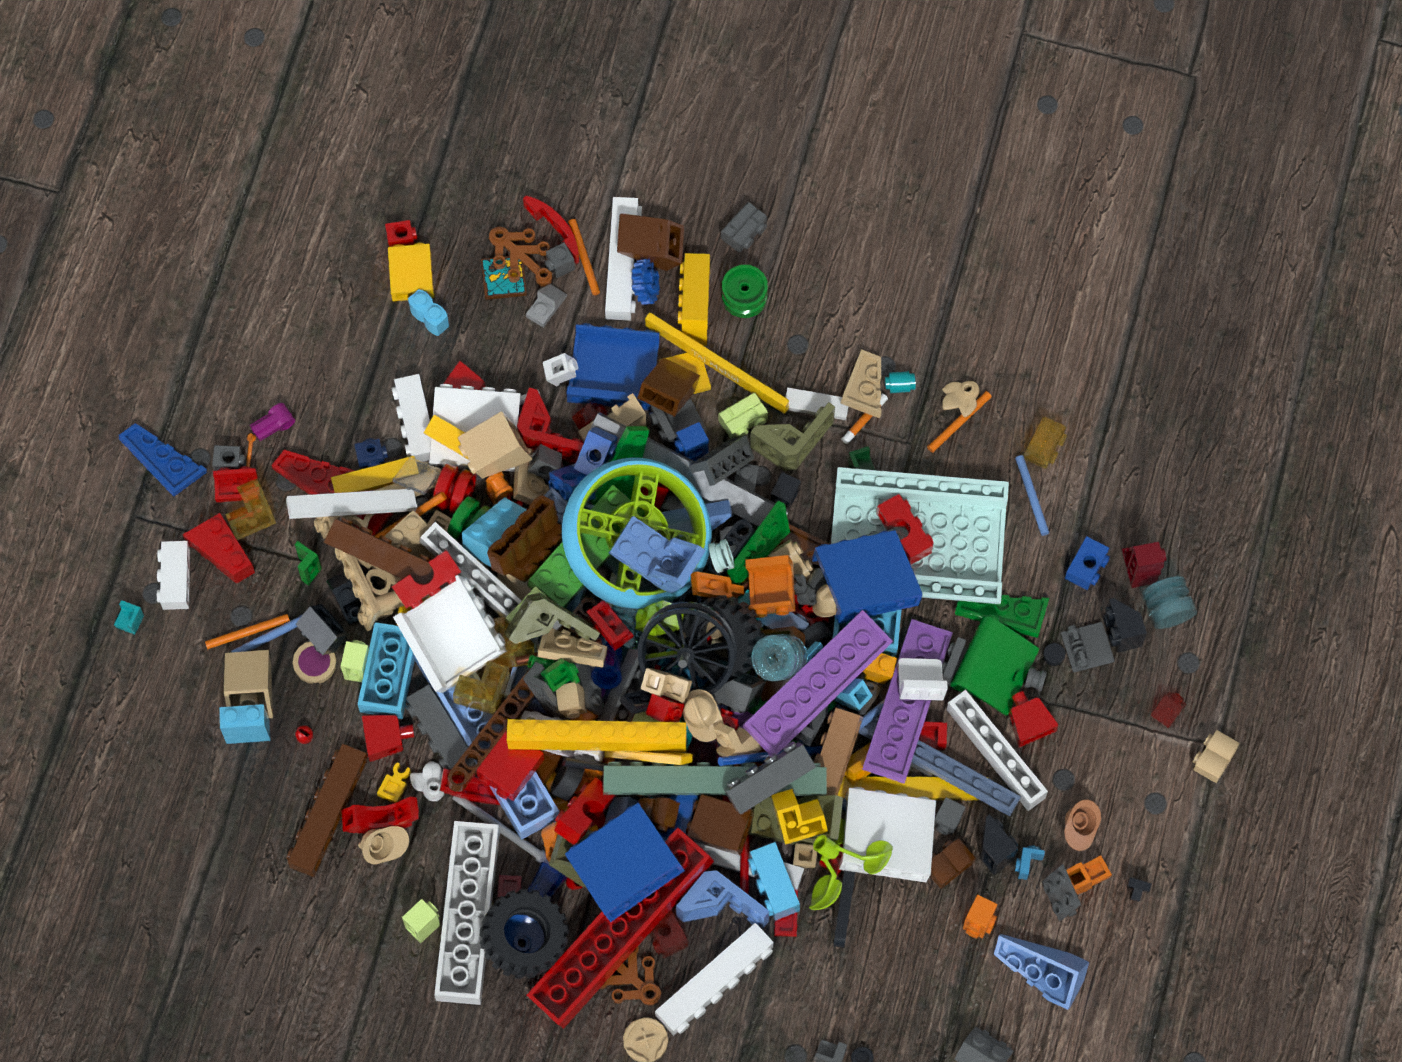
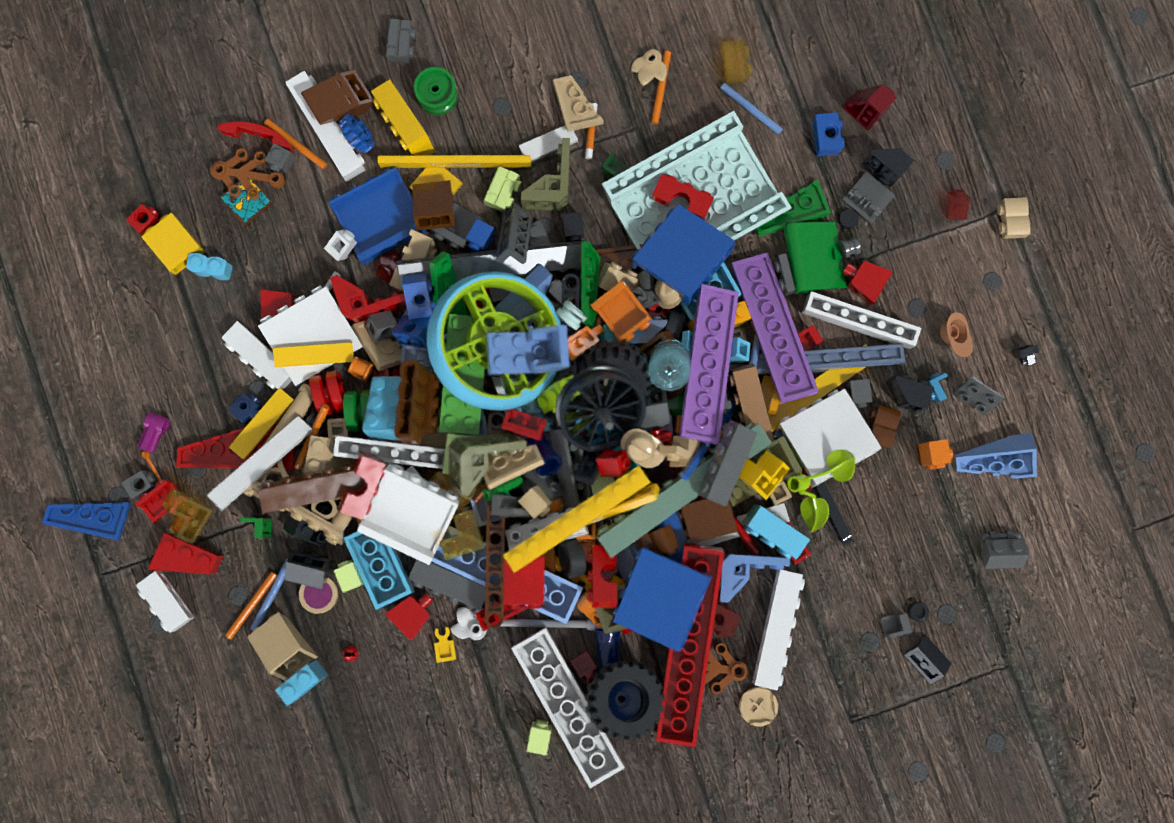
camera: 40 degrees left, 15 degrees up
(129, 617) = (155, 657): teal panel -> none
(326, 812) = (409, 700): reddish brown brick -> none
(364, 818) = (452, 680): red arch -> none
(384, 844) = (469, 698): tan piece -> none
(417, 475) = (293, 403): clear piece -> none
(493, 446) = (336, 343): tan slope -> none
(546, 304) = (293, 200): light grey slope -> none
(559, 674) = (515, 491): green bracket -> none
(584, 764) = (584, 539): black bar -> none
(666, 684) = (600, 444): tan slope -> none
(900, 382) = (598, 85): teal brick -> none
(921, 679) = (775, 305): white bracket -> none
(1088, 874) = (987, 367): orange brick -> none
(1169, 602) = (908, 124): clear light blue wheel -> none

